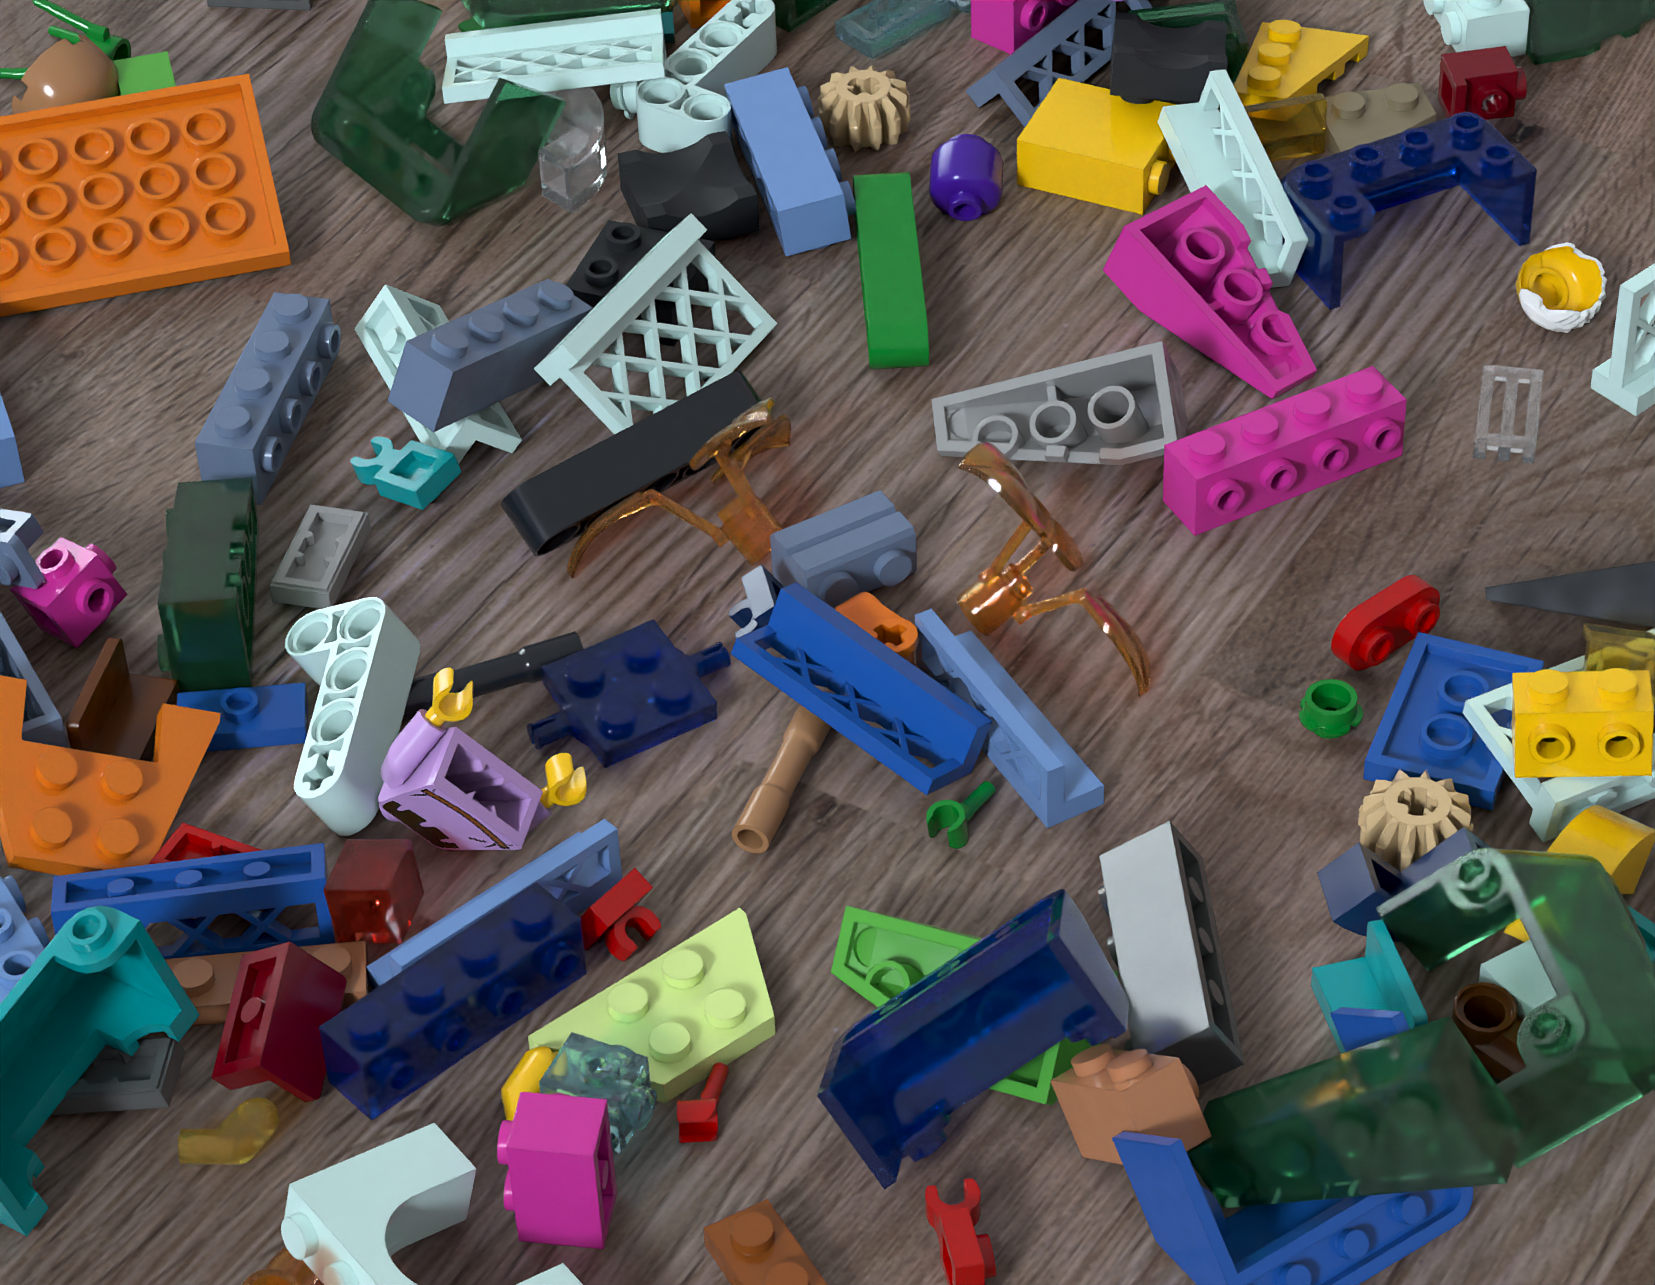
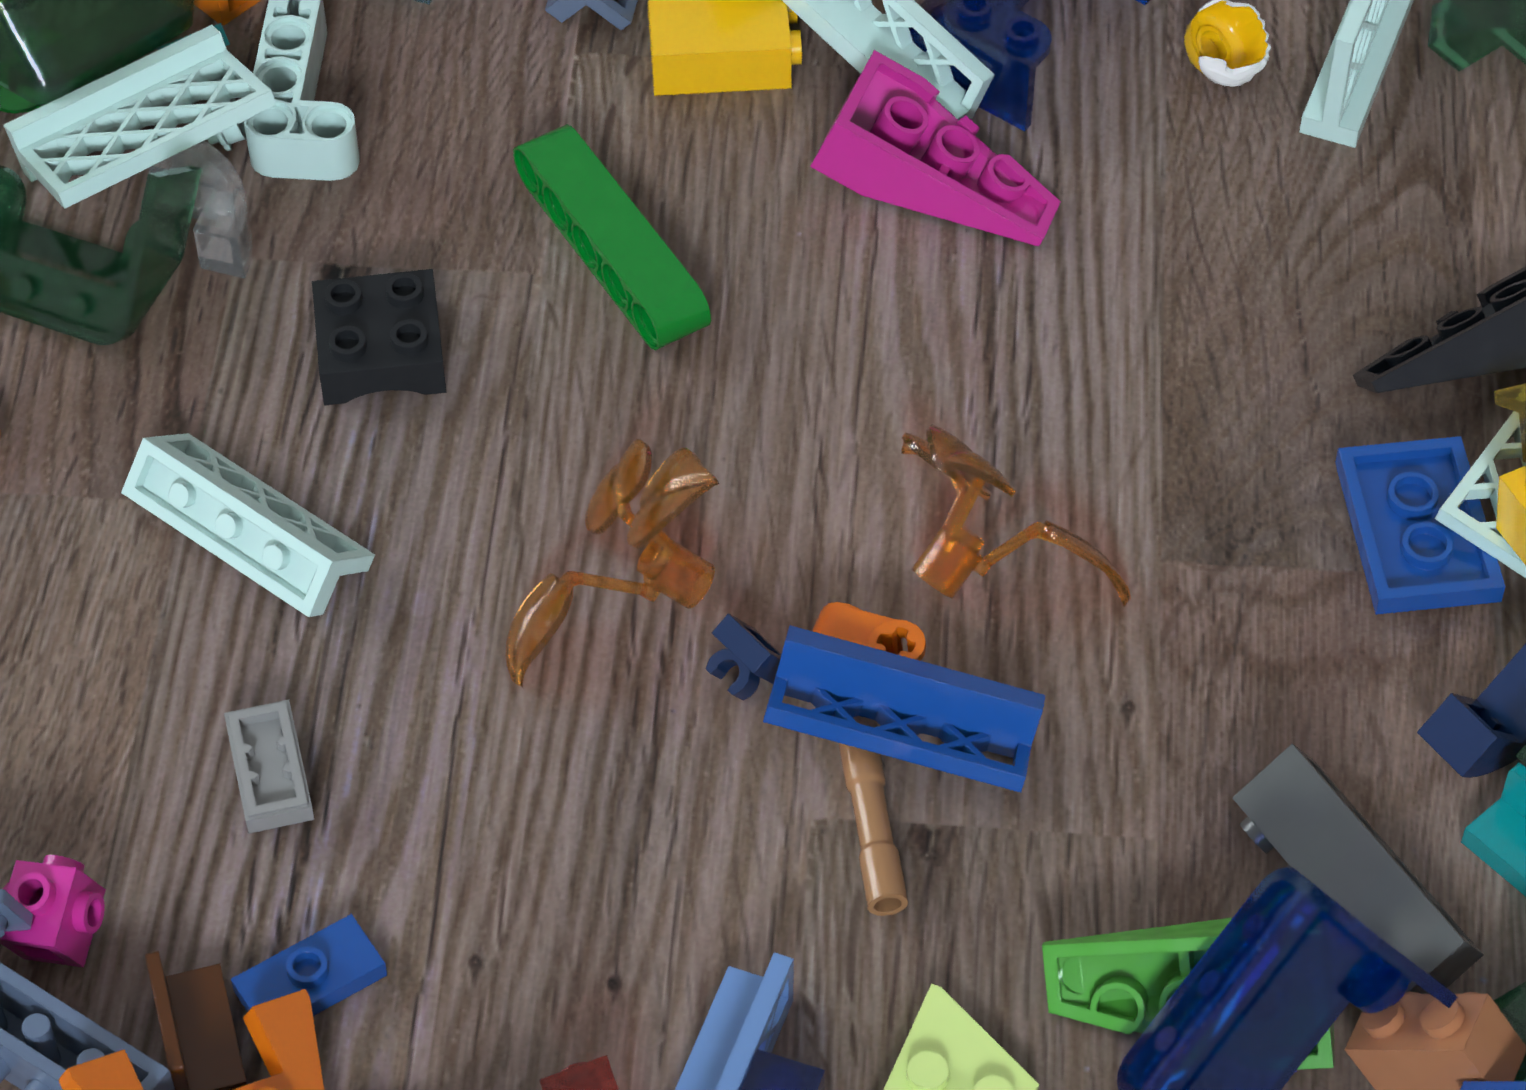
camera: 30 degrees left, 10 degrees up
(209, 585) = (193, 850): clear green wedge -> none
(269, 392) = (97, 608): sand blue brick -> none
(364, 674) = (432, 940): light aqua beam -> none
(407, 475) = (295, 639): teal plate -> none
(459, 790) = (614, 976): lavender torso -> none
(483, 354) = (315, 483): sand blue brick -> none
(497, 673) = (495, 858): black piece -> none
(615, 912) = (825, 1033): red tile -> none
(628, 693) = (669, 796): clear blue plate -> none
(636, 296) = (415, 381): light aqua fence -> none
(642, 457) = (520, 544): black beam -> none
(693, 180) = (363, 218): black brick -> none
(790, 161) = (442, 151): medium blue brick -> none
(846, 550) = (778, 565): sand blue brick -> none
(864, 108) = (468, 65): tan gear -> none
(957, 815) = (1056, 796): green hand -> none
(966, 175) = (618, 109): dark purple head -> none
(1020, 737) = (1075, 703): medium blue fence -> none
(1081, 412) = (901, 333): light grey wedge -> none
(1283, 450) = (1101, 303): dark pink brick -> none
(1330, 708) = (1308, 543): green plate -> none
(1386, 622) = (1297, 465): red plate -> none
(1411, 817) = (1458, 645): tan gear -> none
(1506, 441) = (1266, 219): clear tile -> none

